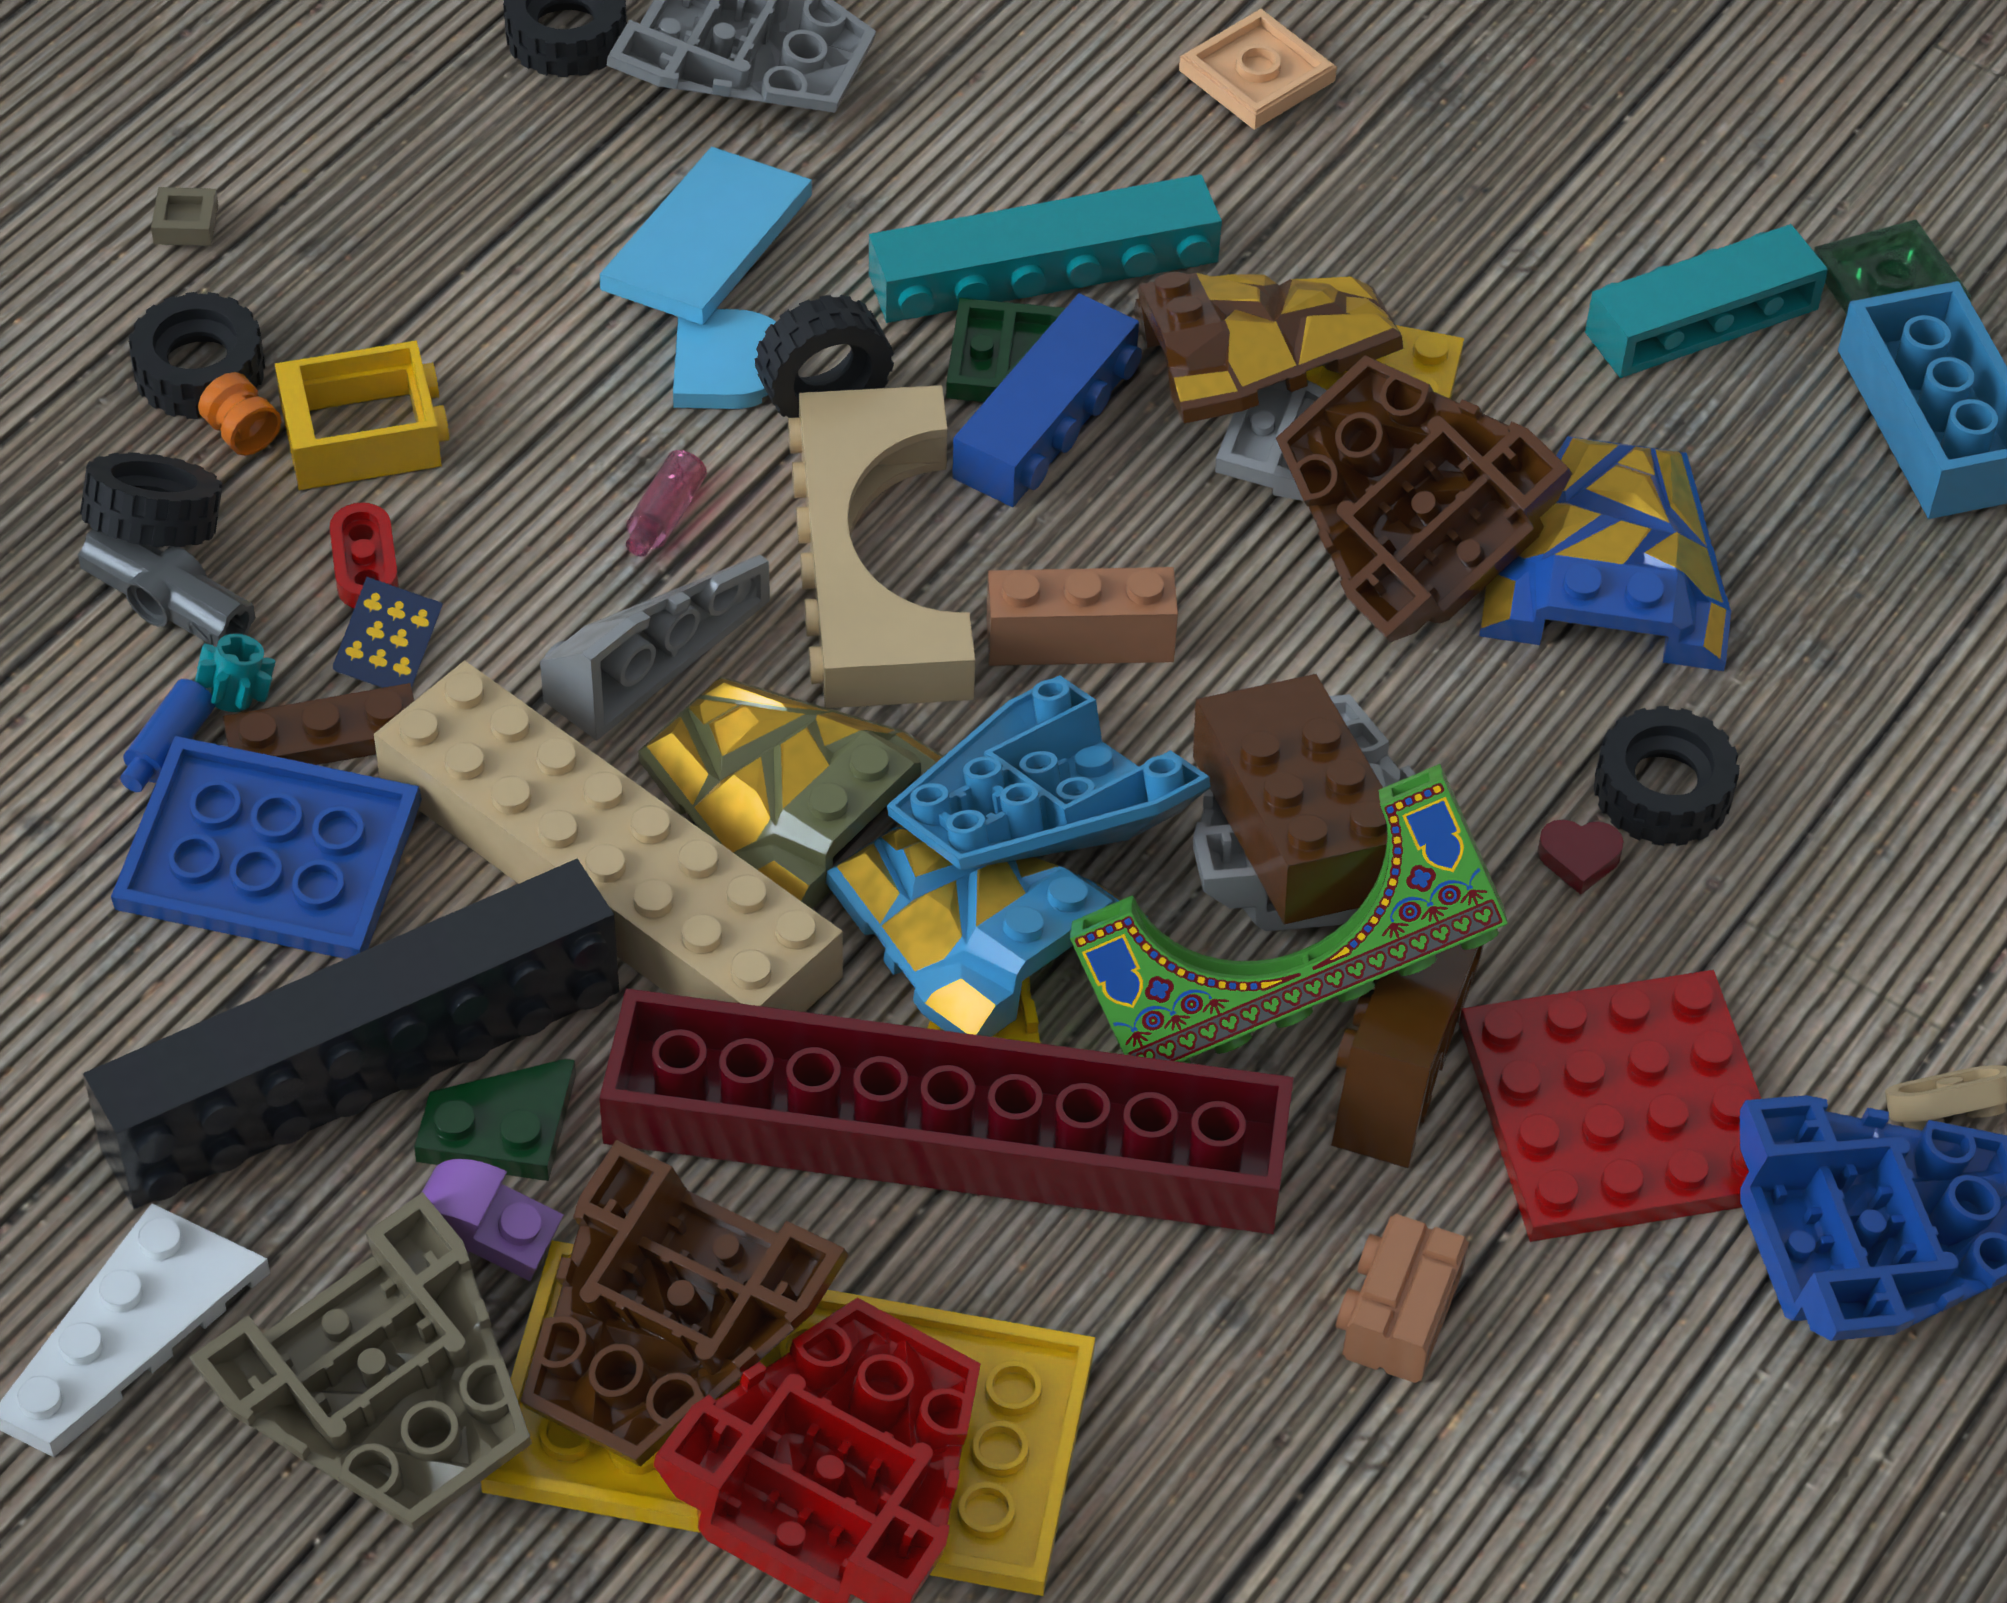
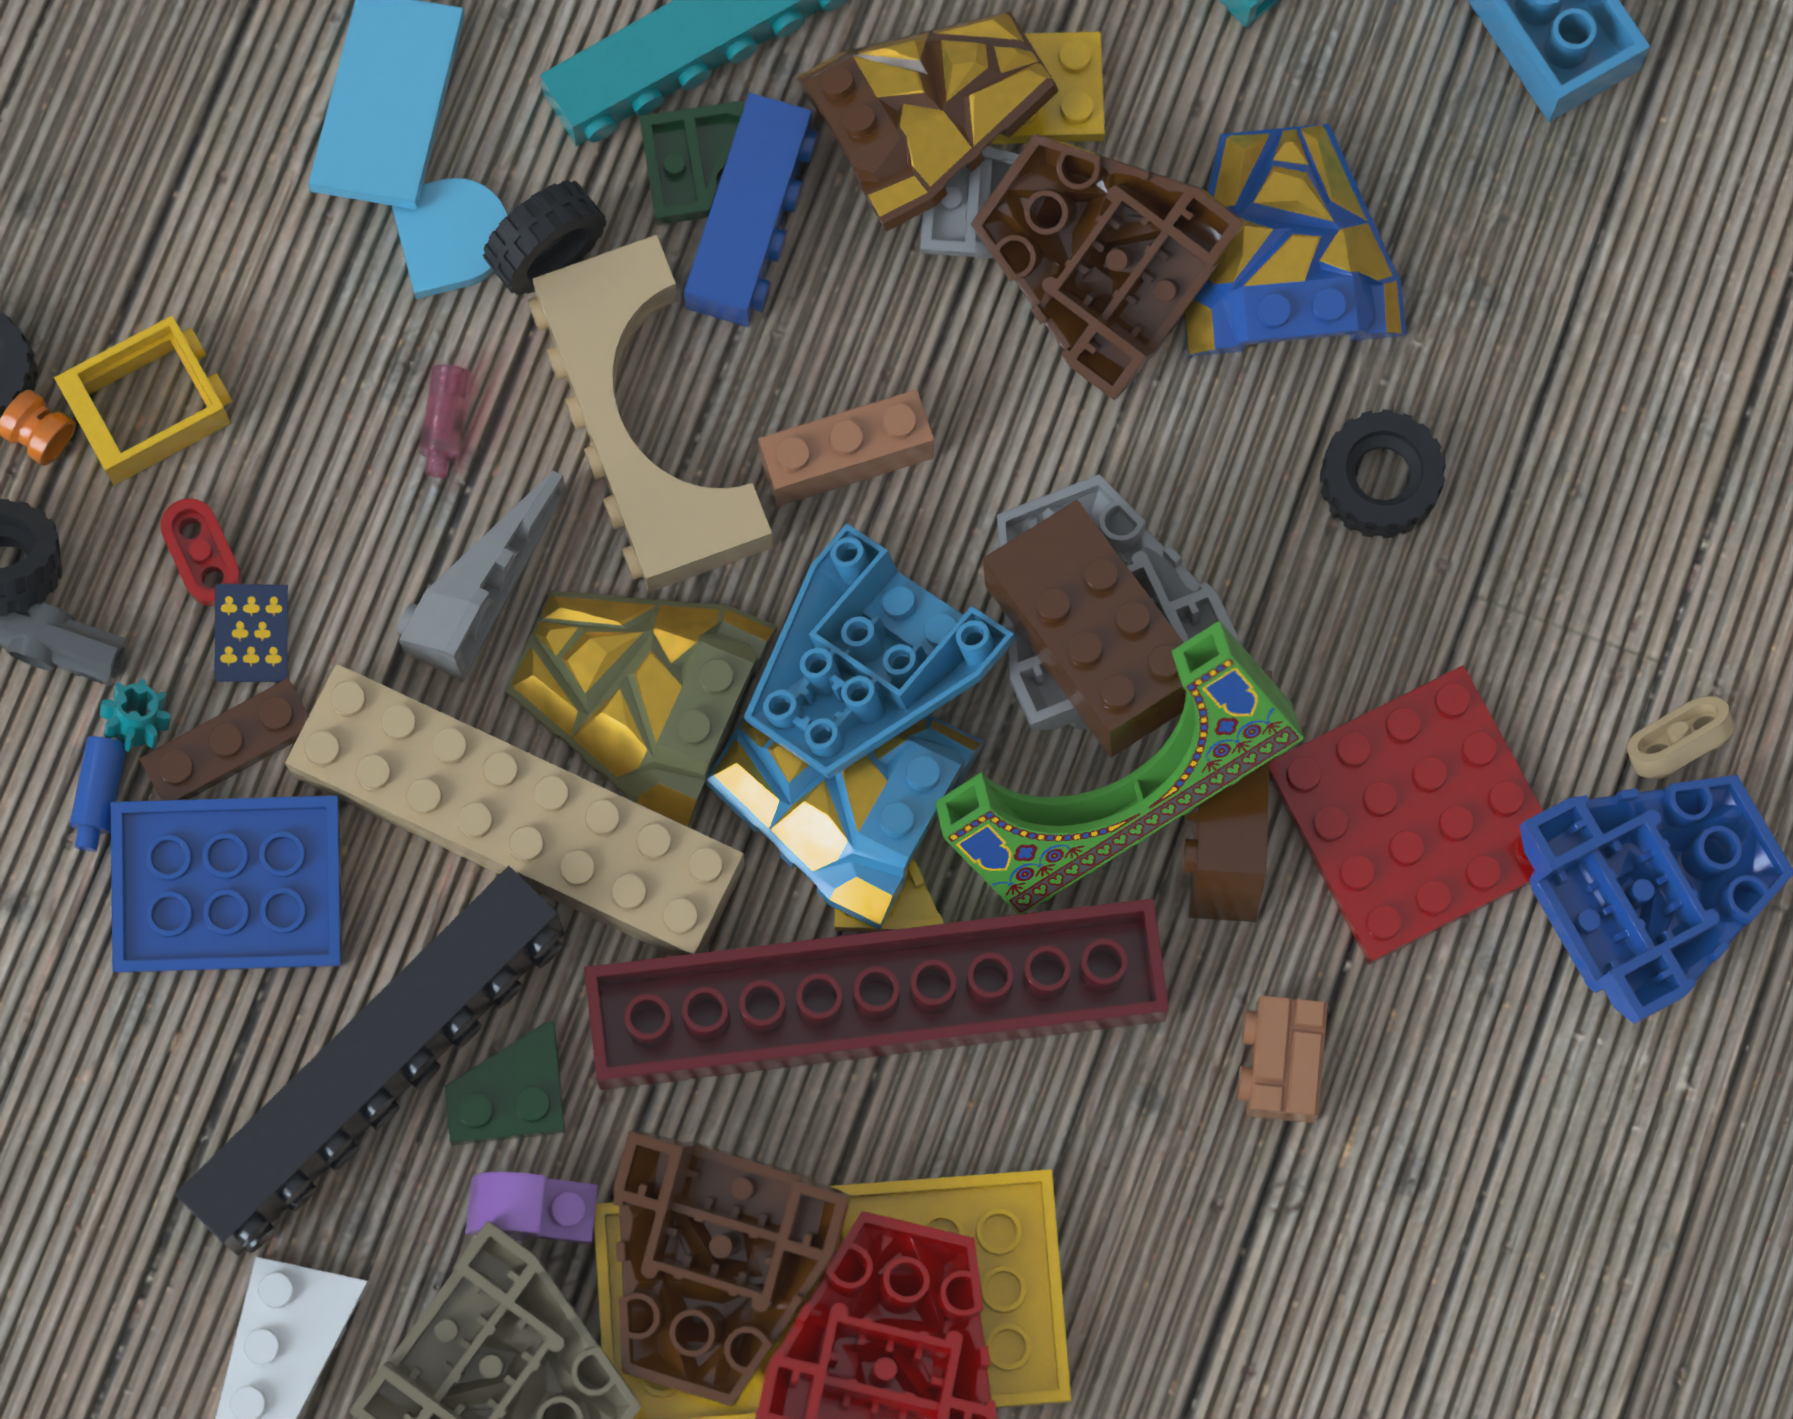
camera: 15 degrees left, 25 degrees up
(1580, 852) = (1326, 570): dark red tile -> none

